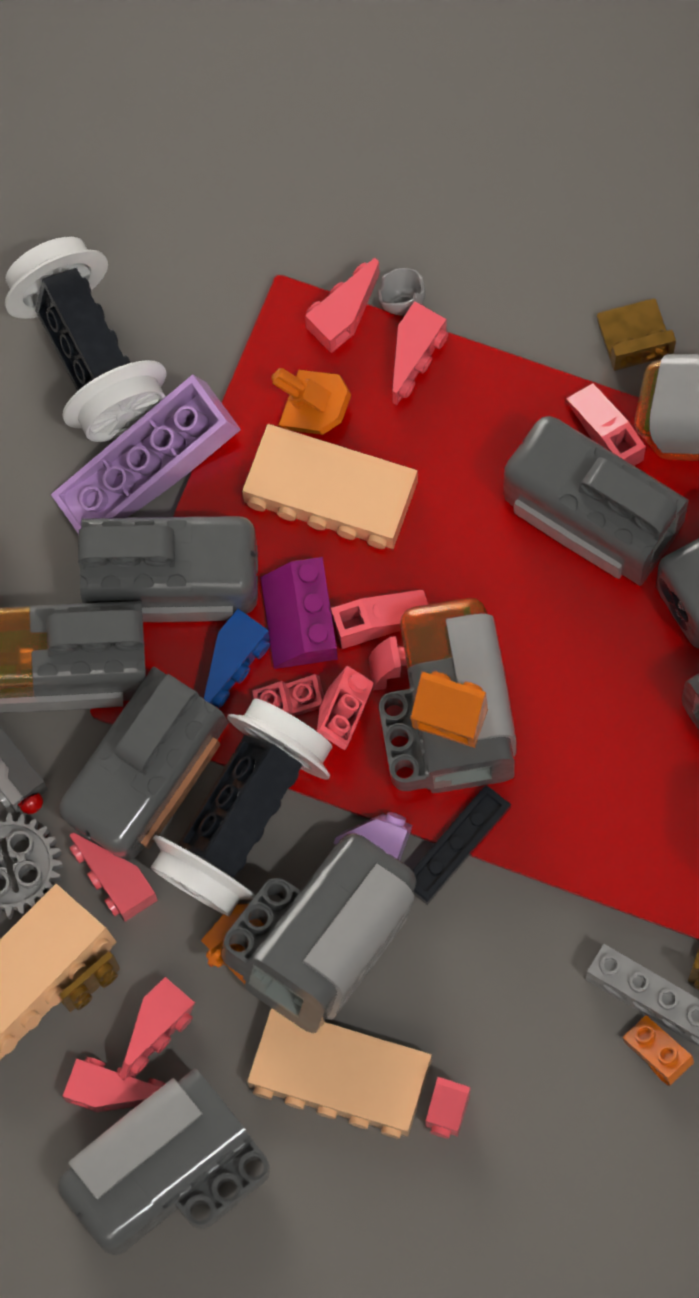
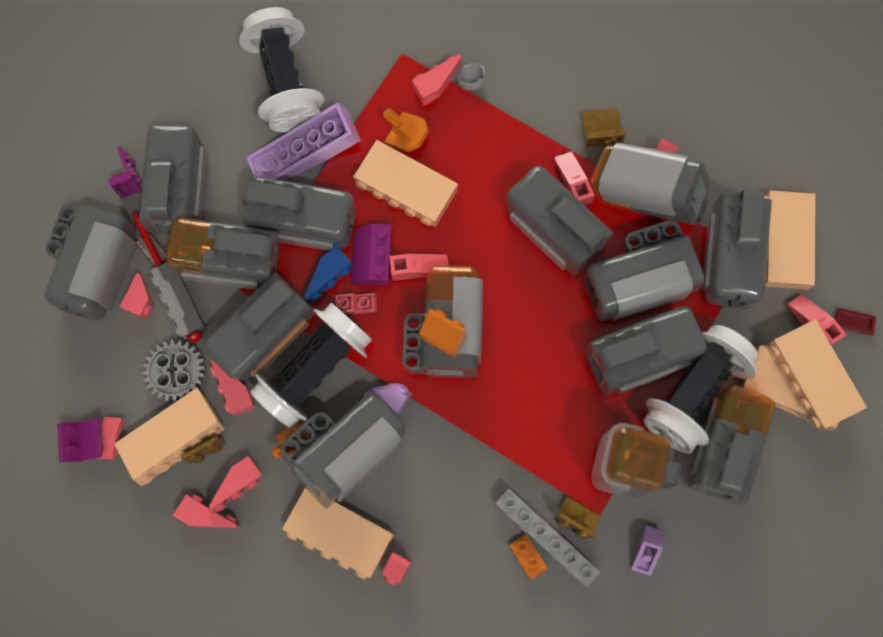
camera: 10 degrees right, 5 degrees up
(159, 1160) = (220, 567): dark grey piece -> none
(343, 706) = (383, 317): coral slope -> none
(386, 662) = (415, 294): coral slope -> none
(416, 340) = (474, 106): coral slope -> none
(458, 843) = (436, 409): black tile -> none

